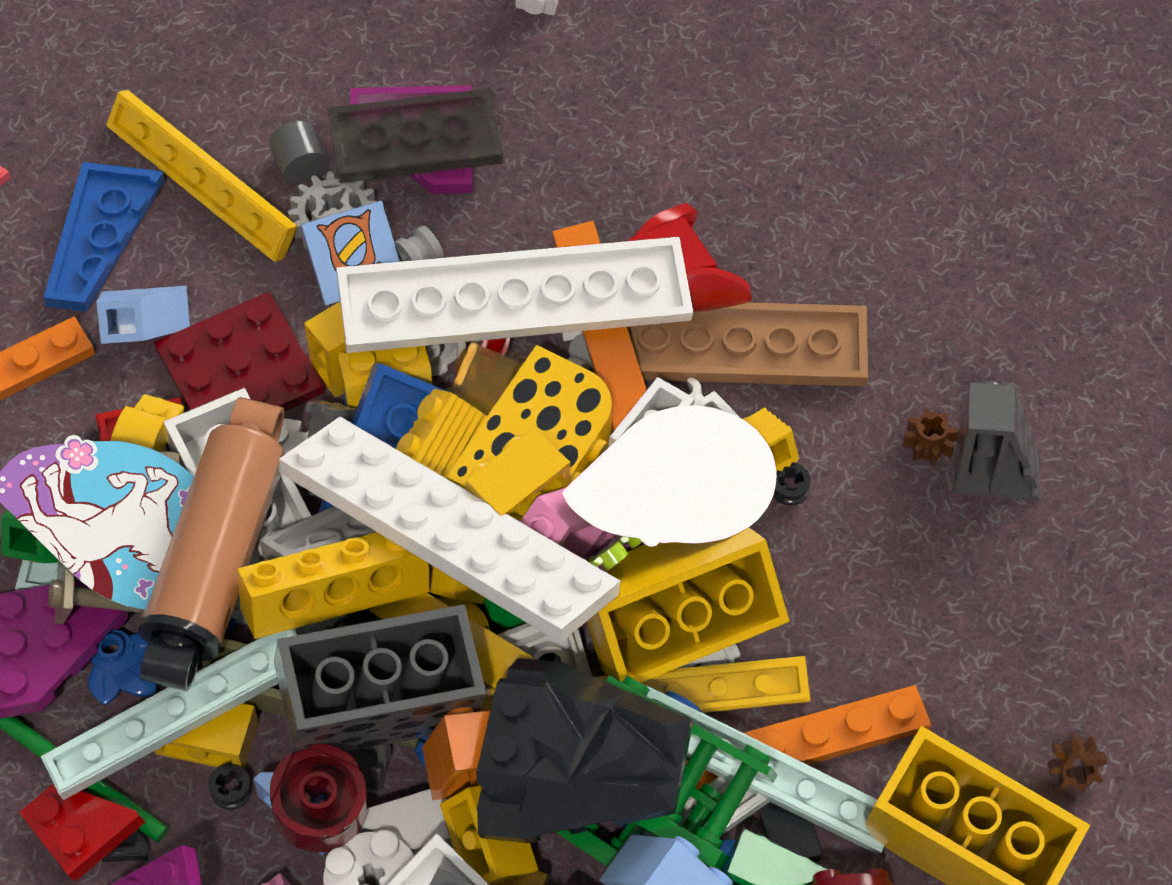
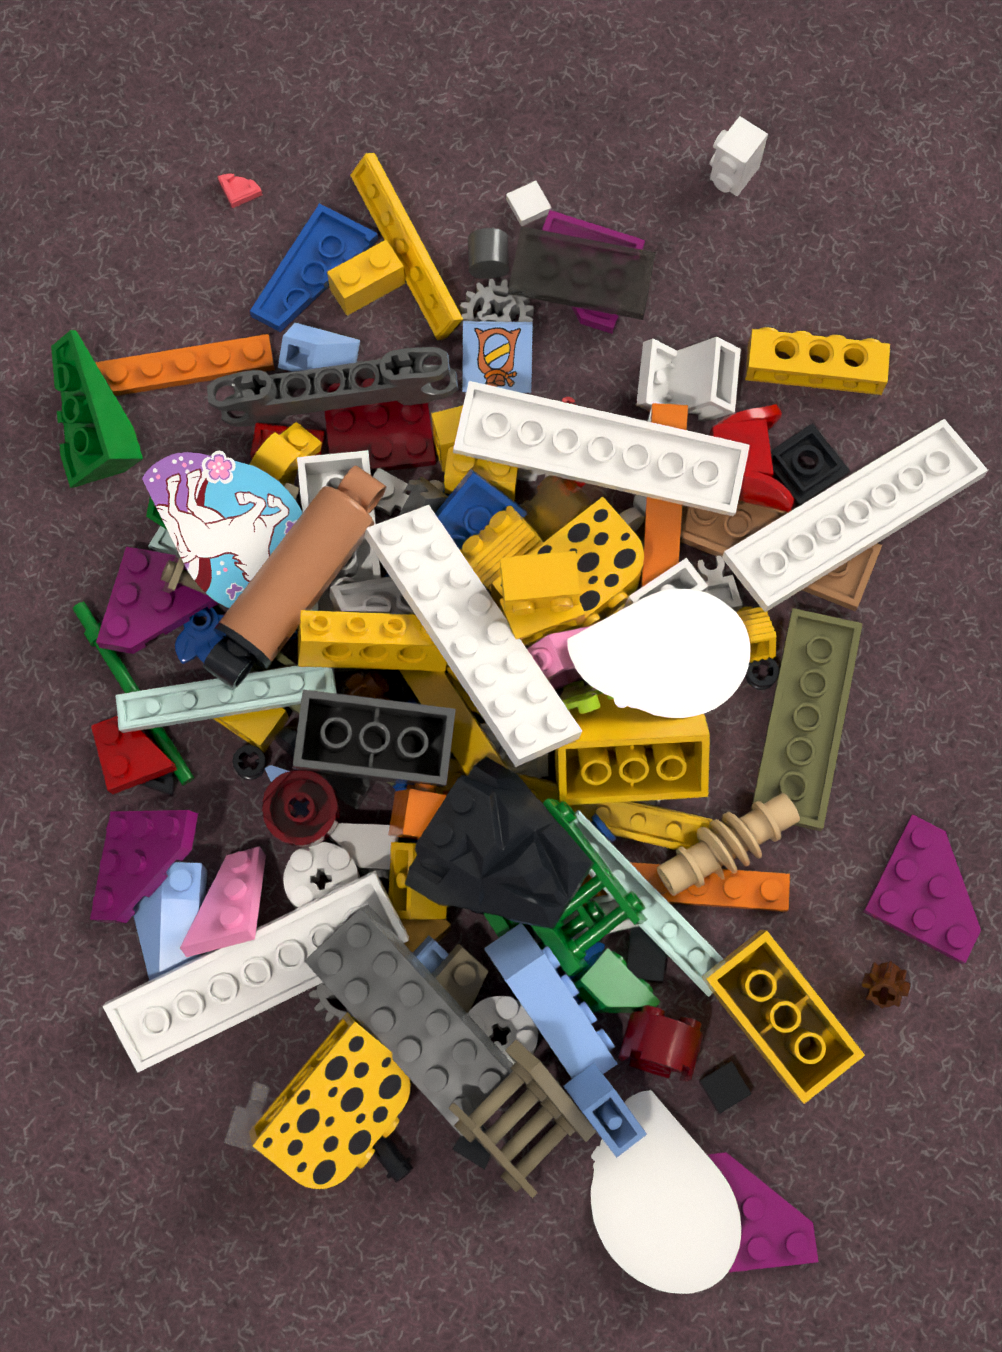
camera: 20 degrees right, 15 degrees up
(104, 374) = (397, 377): none -> dark grey piece
(167, 220) = (366, 277): none -> yellow brick
(271, 744) = (286, 740): none -> black tile
(322, 90) = (528, 203): none -> white tile
(420, 246) = (550, 372): light grey wheel -> none
(506, 440) = (540, 582): none -> yellow brick
(581, 196) = (690, 377): none -> white piece
(713, 146) = (801, 370): none -> yellow brick
(758, 269) = (801, 482): none -> black piece
(821, 284) = (854, 515): none -> white plate
(833, 670) = (726, 842): none -> tan piece
(862, 516) = (808, 714): none -> olive plate
(930, 437) = (886, 684): reddish brown gear -> none
(996, 446) = (932, 707): dark grey wedge -> none
(1076, 653) = (925, 893): none -> magenta plate

